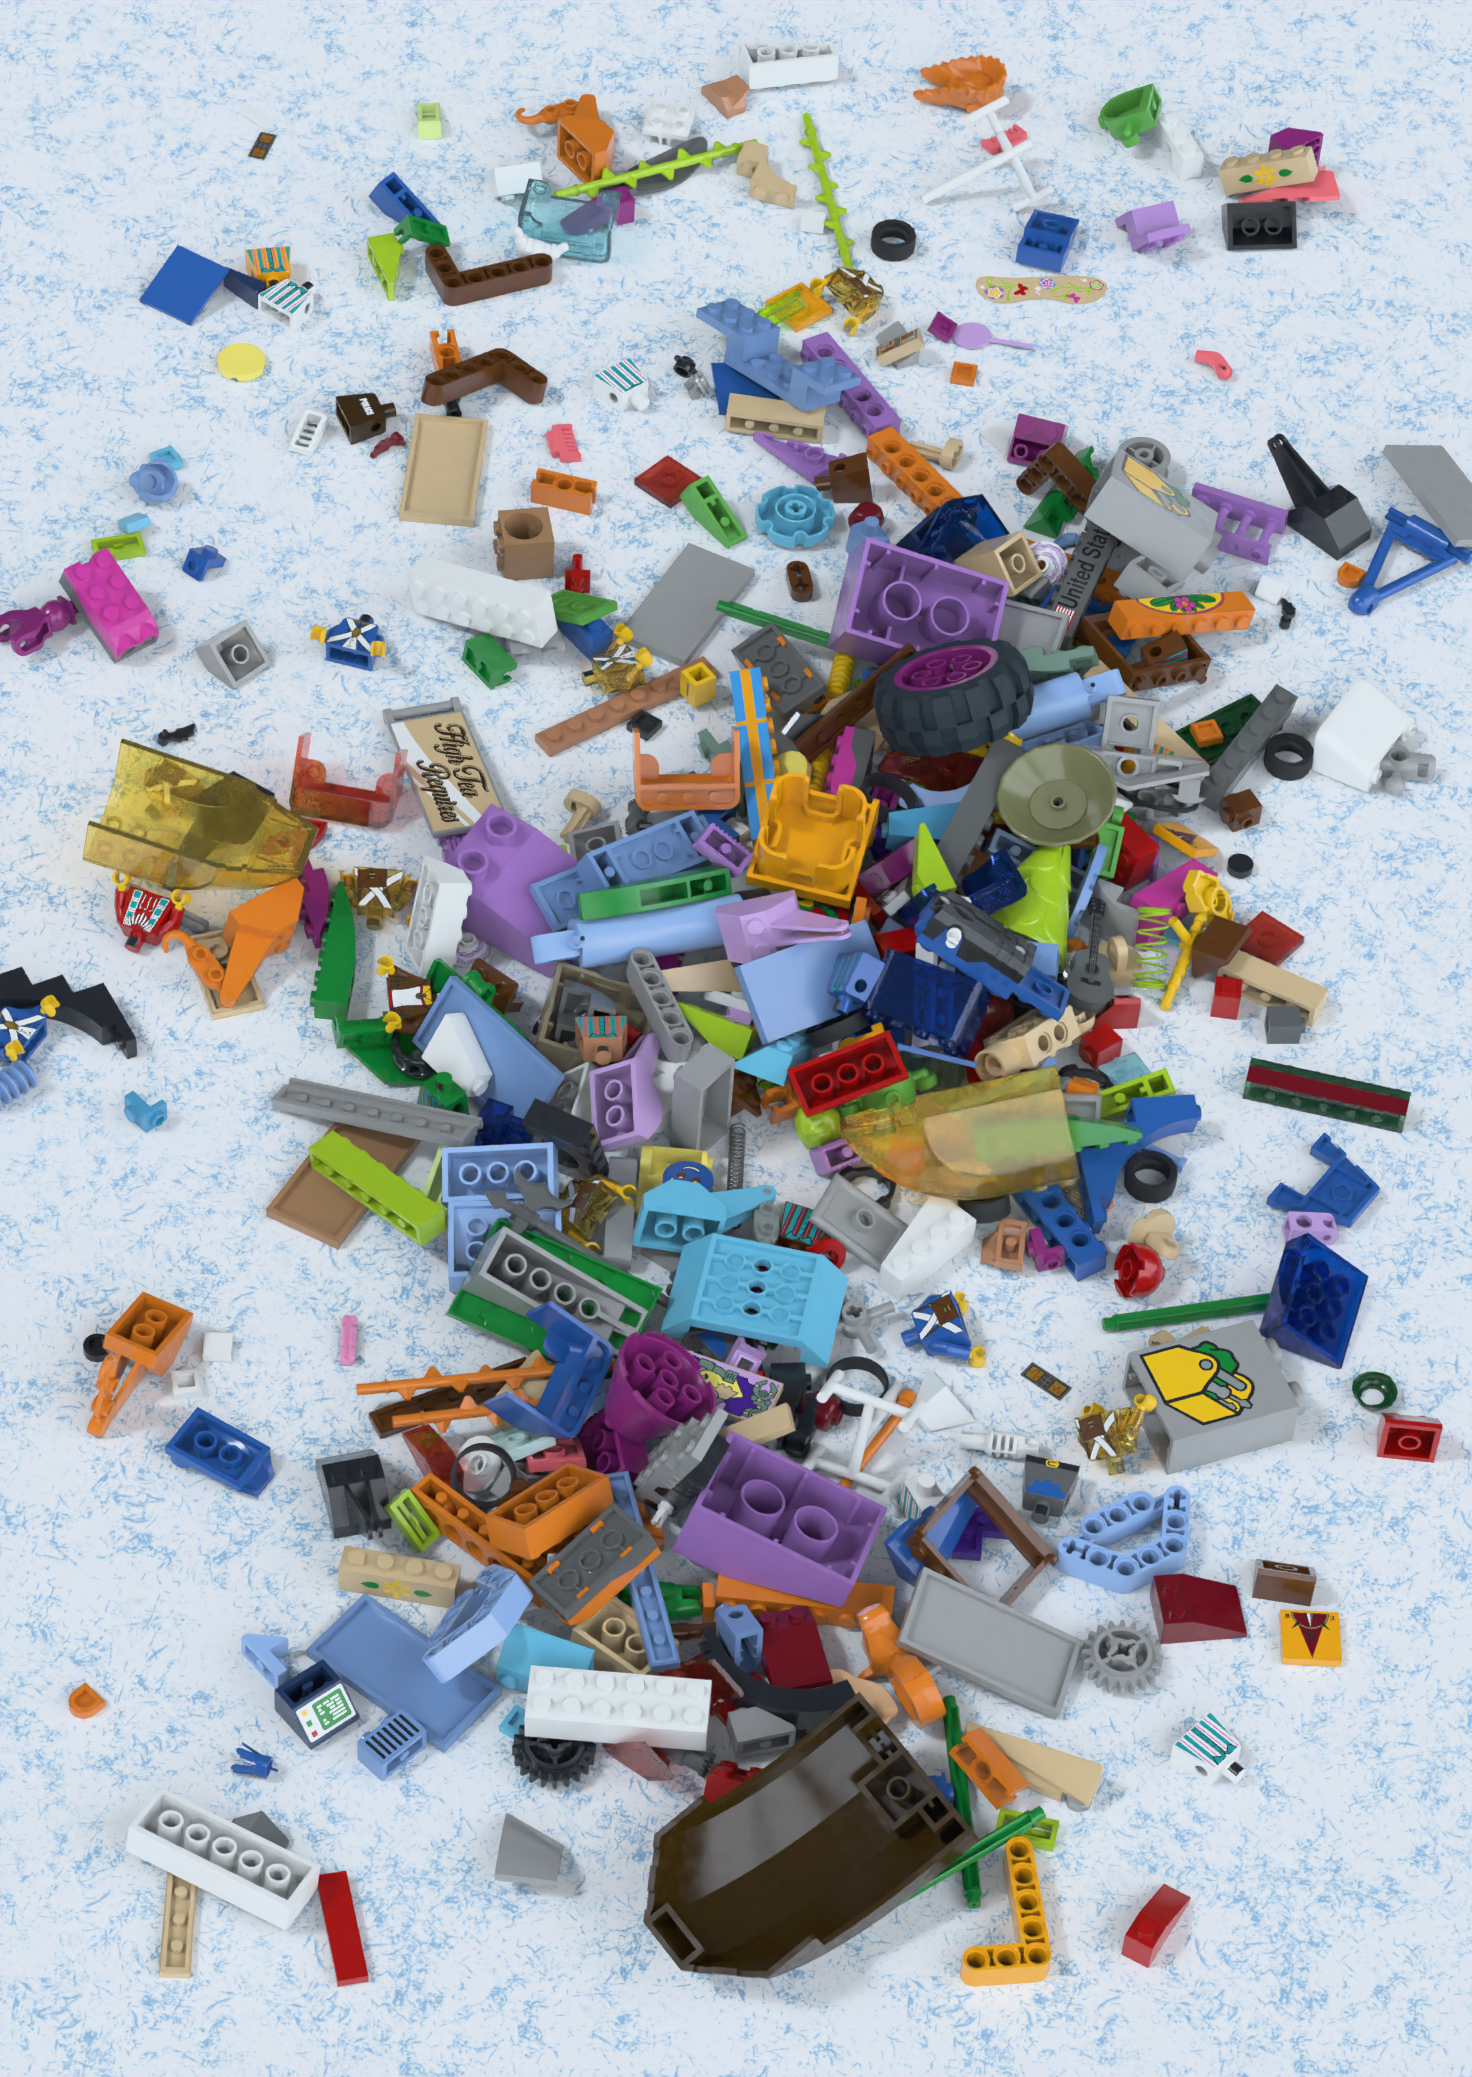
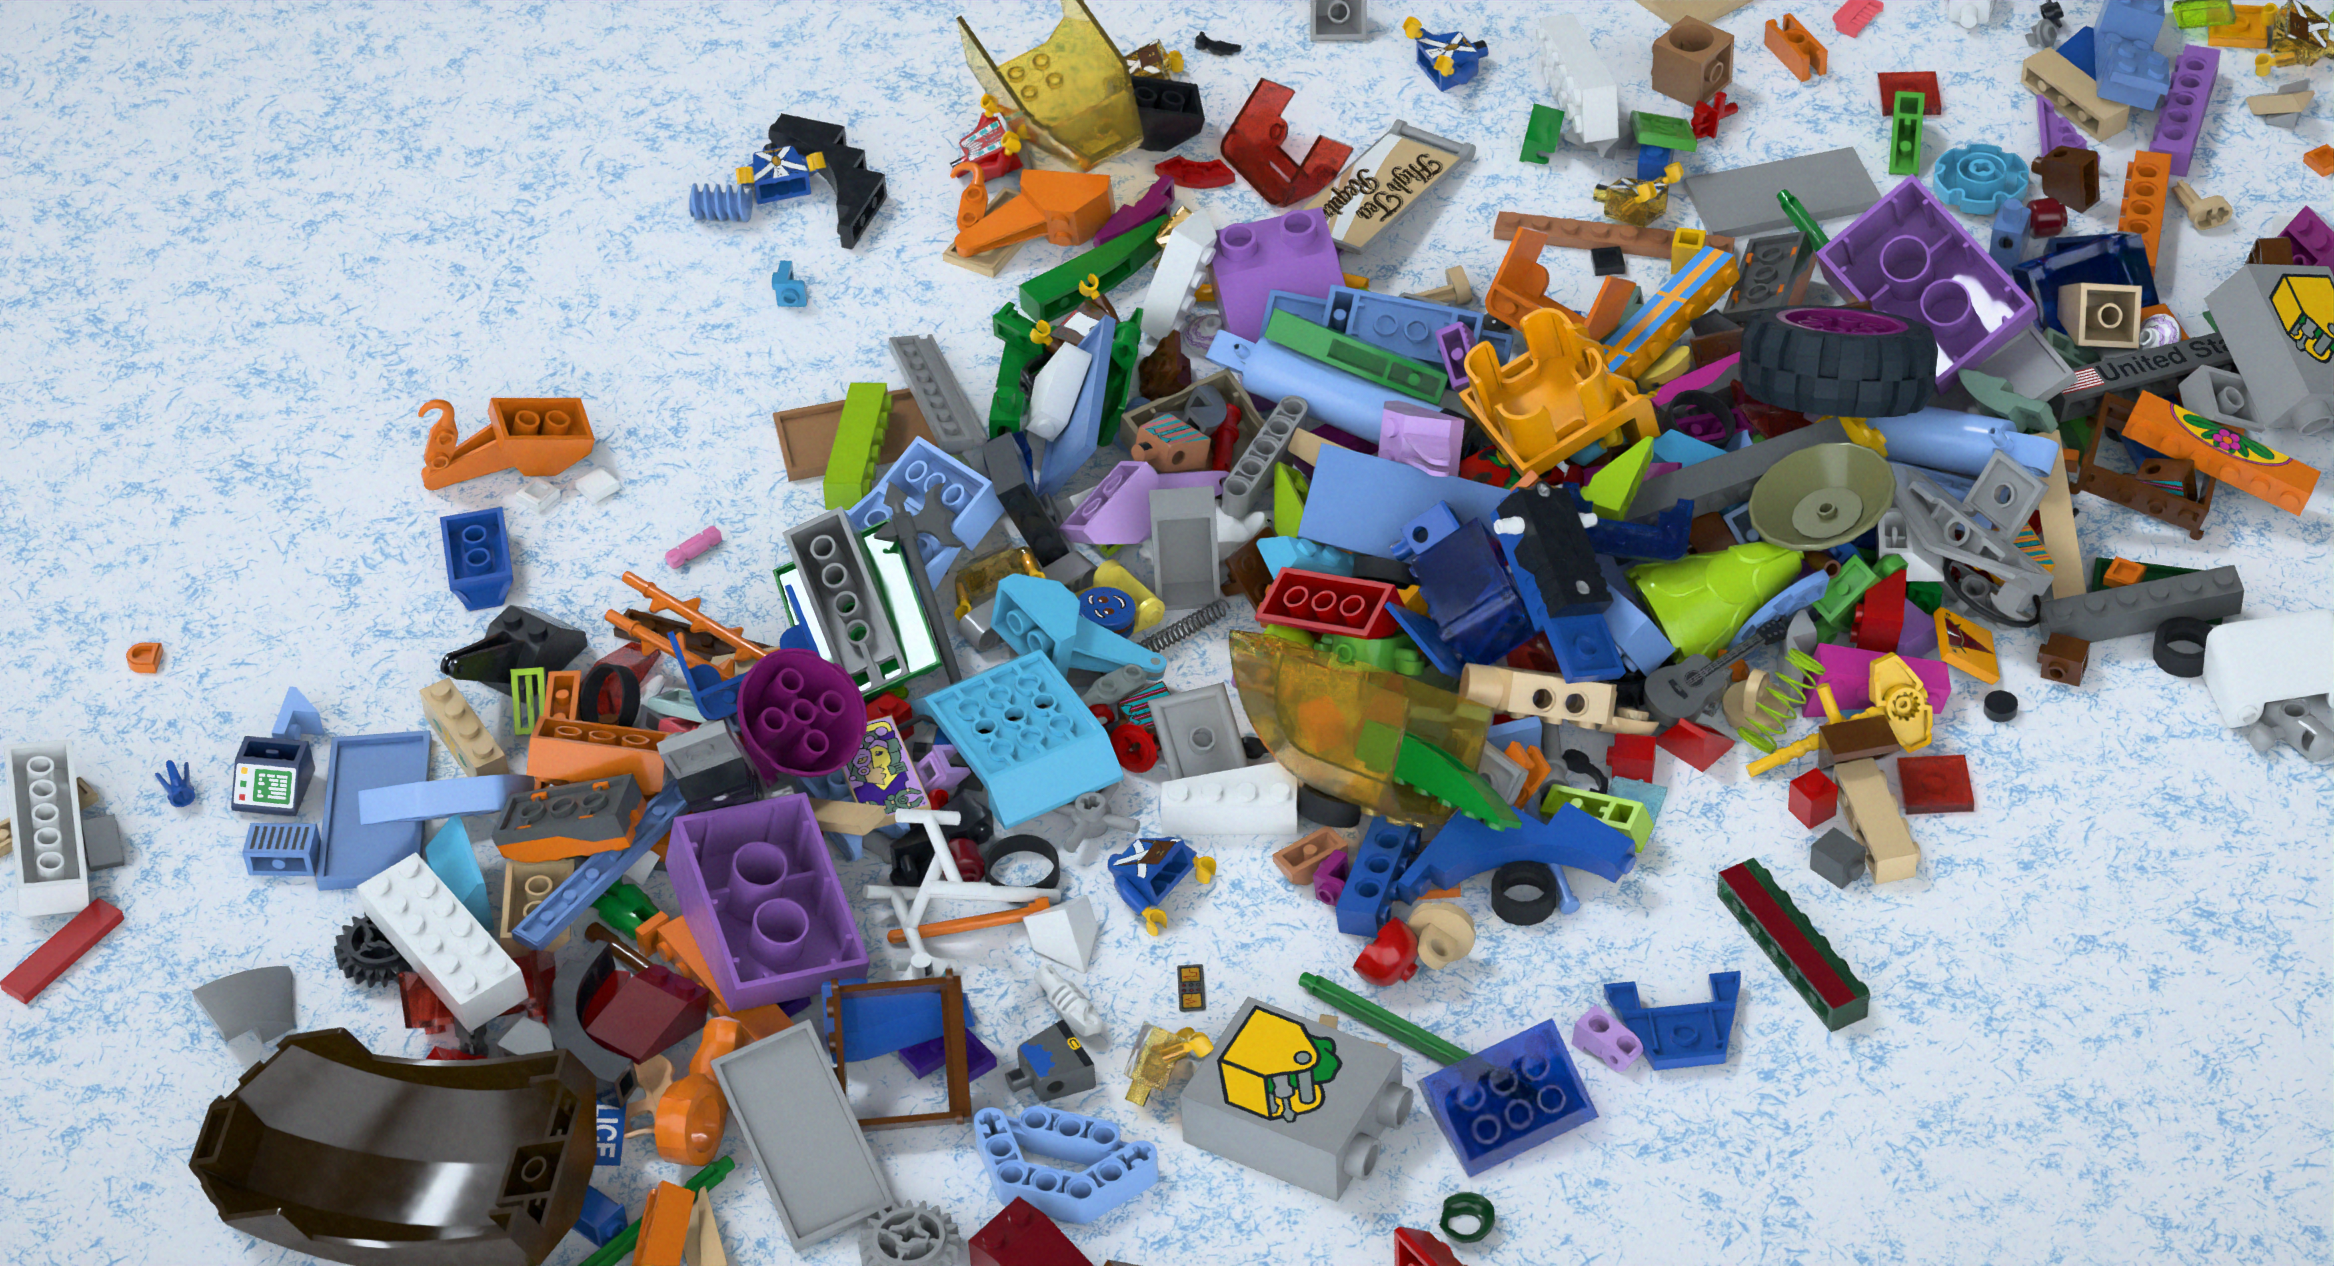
camera: 55 degrees right, 5 degrees down
(740, 1628) = (615, 964): medium blue torso -> none

